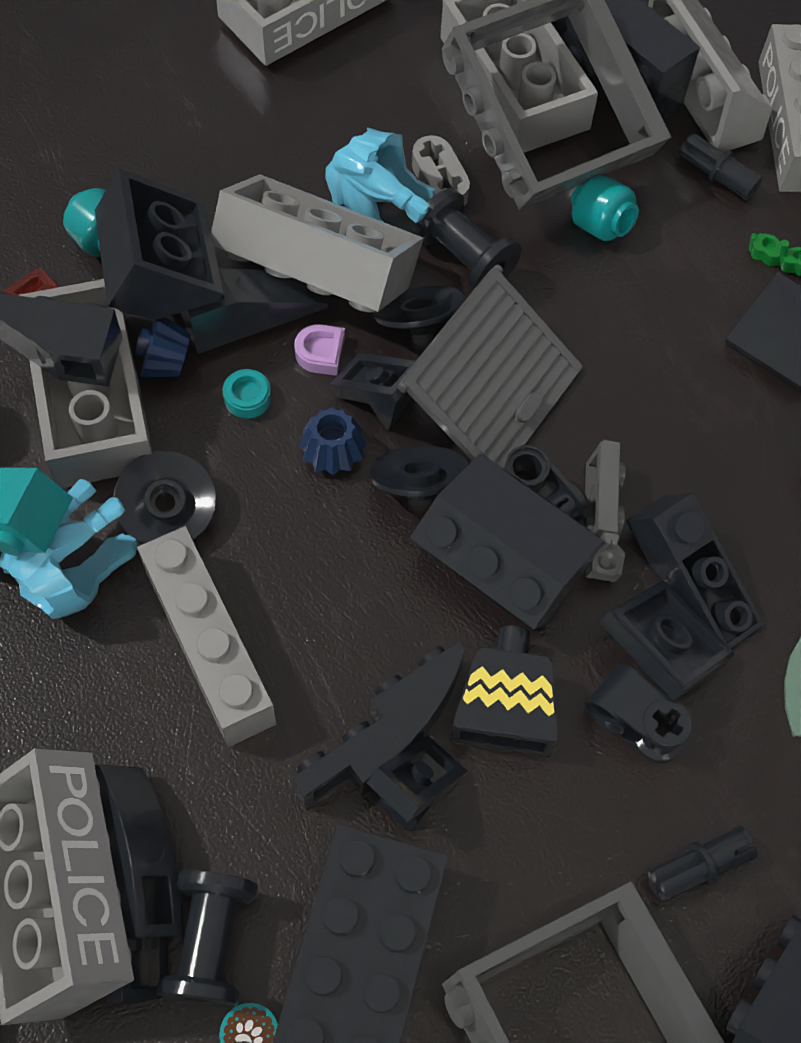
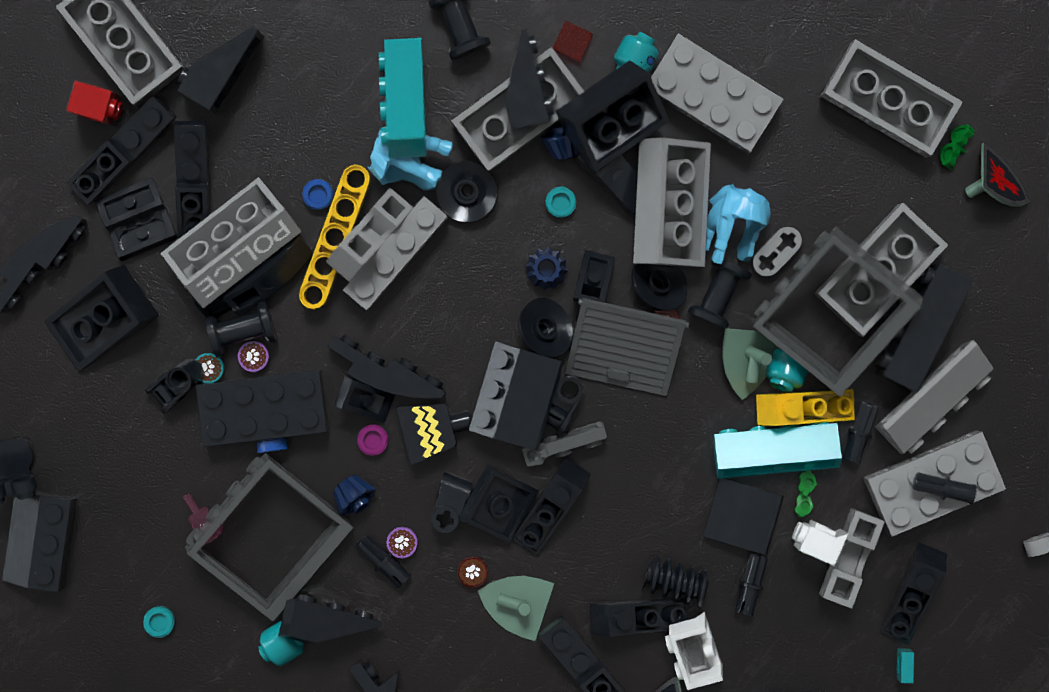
camera: 75 degrees right, 25 degrees up
(55, 723) = (318, 194): none -> blue tile
(124, 696) = (334, 221): none -> yellow beam
(155, 649) = (369, 234): none -> light grey arch
(207, 144) = (714, 94): none -> light grey brick
(265, 943) = (253, 356): none -> tile
(320, 348) = (610, 231): lavender tile -> none
(432, 973) = (272, 445): none -> blue tile
(488, 799) = (372, 439): none -> magenta tile
(572, 864) = (353, 495): none -> dark blue piece
(573, 244) = (746, 359): none -> sand green shield
(662, 212) = (804, 407): none -> yellow slope
(677, 820) = (402, 542): none -> tile
(712, 256) = (776, 450): none -> brick
(762, 728) = (472, 571): none -> tile

